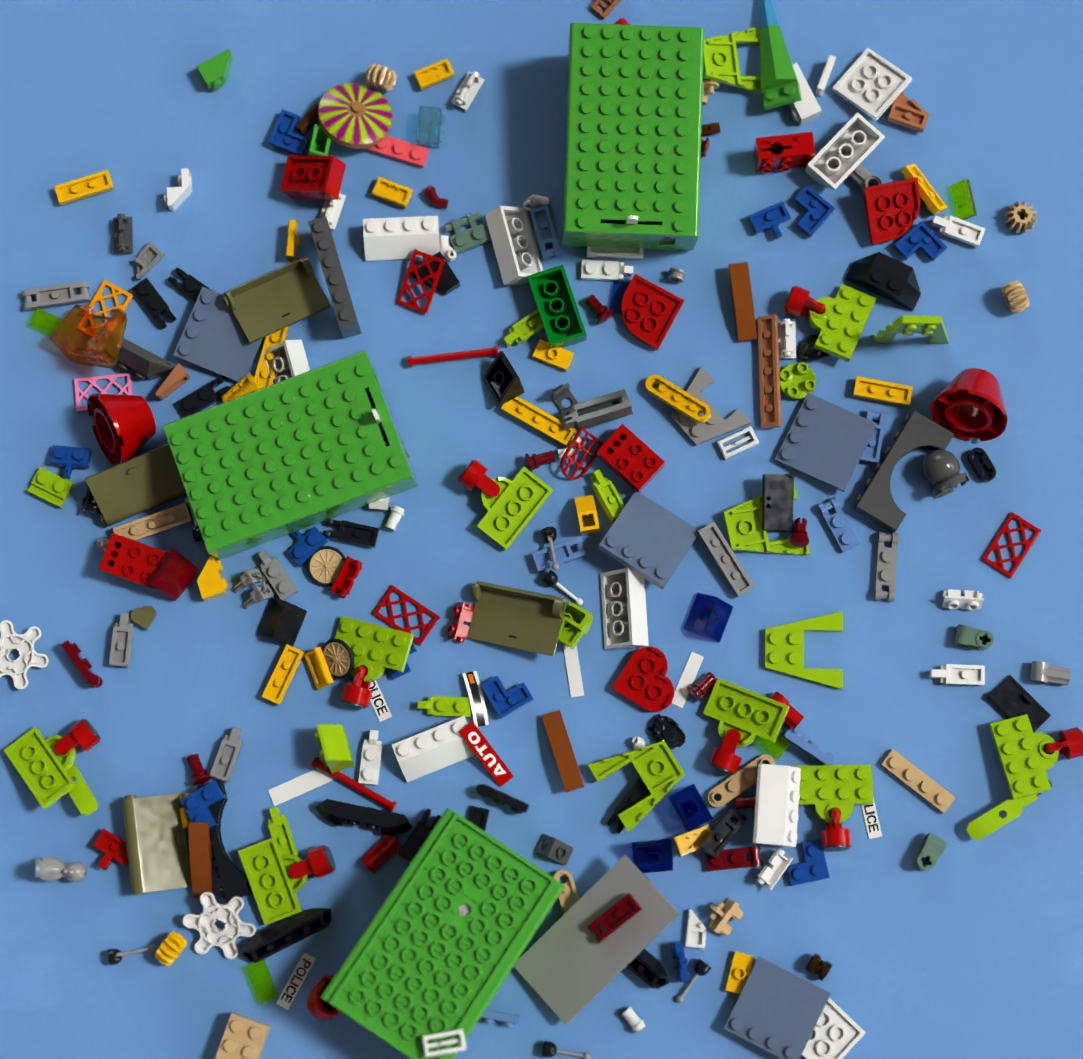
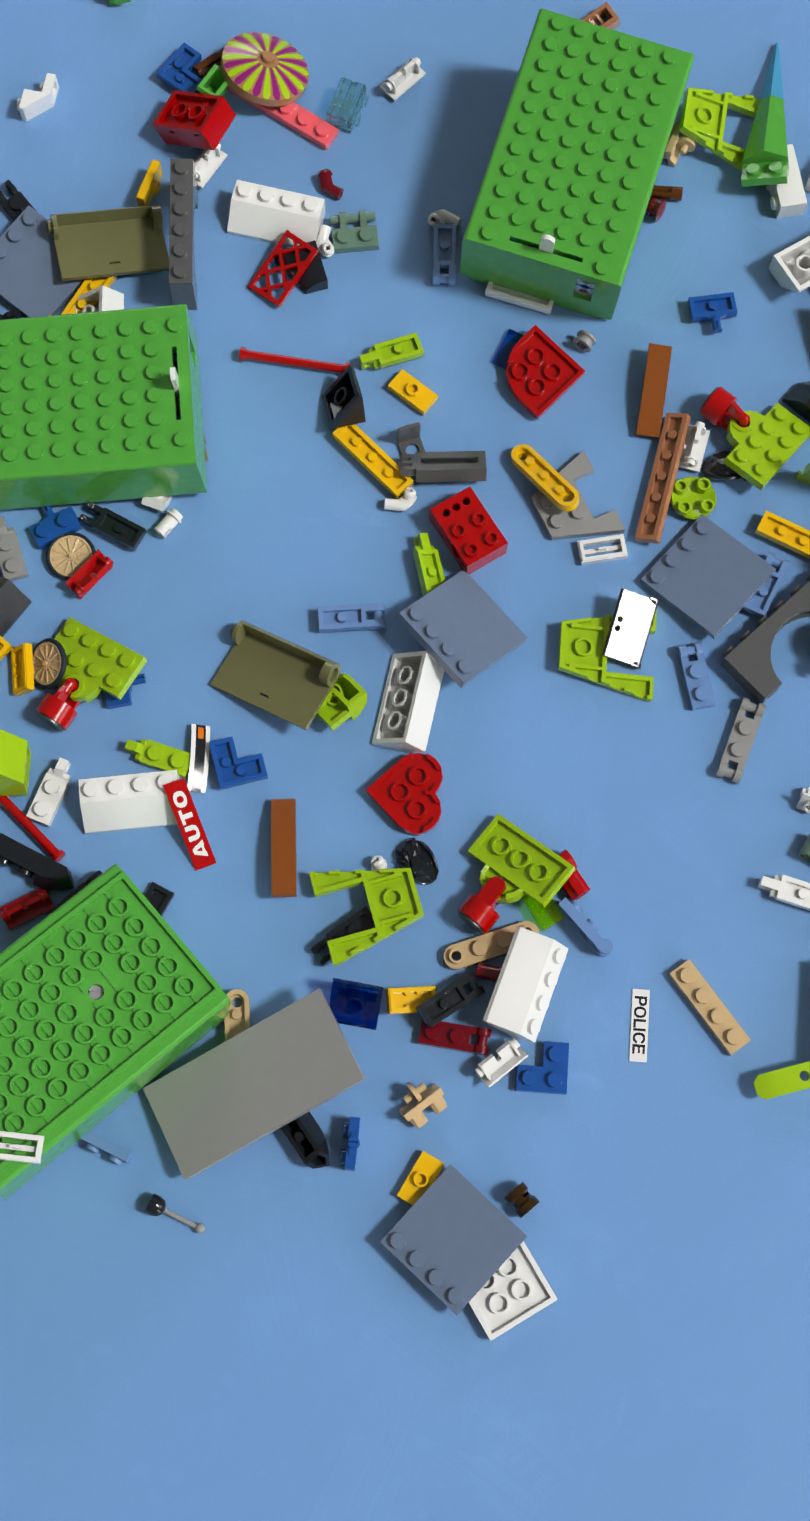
camera: 10 degrees right, 5 degrees down
(378, 702) = (81, 729): white sticker -> none
(380, 77) = (307, 36): tan gear -> none
(392, 192) = (281, 164): yellow plate -> none
(405, 598) = (152, 619): red window -> none
(434, 74) = (369, 51): yellow plate -> none
(461, 613) = (214, 655): hinge -> none
(501, 798) = (192, 883): black hinge -> none
(507, 501) = (306, 541): lime plate -> none
(513, 244) = (404, 258): white slope -> none
(538, 460) = (359, 503): dark red pin -> none
(549, 536) = (344, 596): hinge -> none
(552, 579) = (331, 644): hinge -> none
(555, 850) = (238, 963): dark grey bracket -> none
(557, 307) = (432, 337): green slope -> none
(573, 671) = (326, 758): white sticker -> none
(586, 515) = (396, 582): yellow slope -> none
(587, 451) = (398, 512): red window -> none
(600, 311) = (483, 357): dark red pin -> none
(605, 270) = (501, 315): white hinge -> none
(615, 917) = (283, 1061): dark red plate -> none
(633, 1020) = (271, 1199): white pin -> none
(687, 679) = (460, 807): white sticker -> none
(689, 808) = (418, 959): clear blue slope -> none
(695, 932) = (381, 1113): white tile -> none
(701, 969) = (374, 1160): hinge -> none
(702, 686) = (475, 819): dark red pin -> none
(708, 617) = (508, 740): clear blue slope -> none
(725, 559) = (548, 677): light grey plate -> none
(783, 152) = (749, 235): red piece -> none
(786, 649) = (591, 803): lime wing -> none
(800, 536) = (645, 674): dark red pin -> none
(817, 210) = (770, 313): blue plate -> none
(833, 794) = (599, 994): lime plate -> none
(931, 850) = (702, 1095): sand green piece -> none

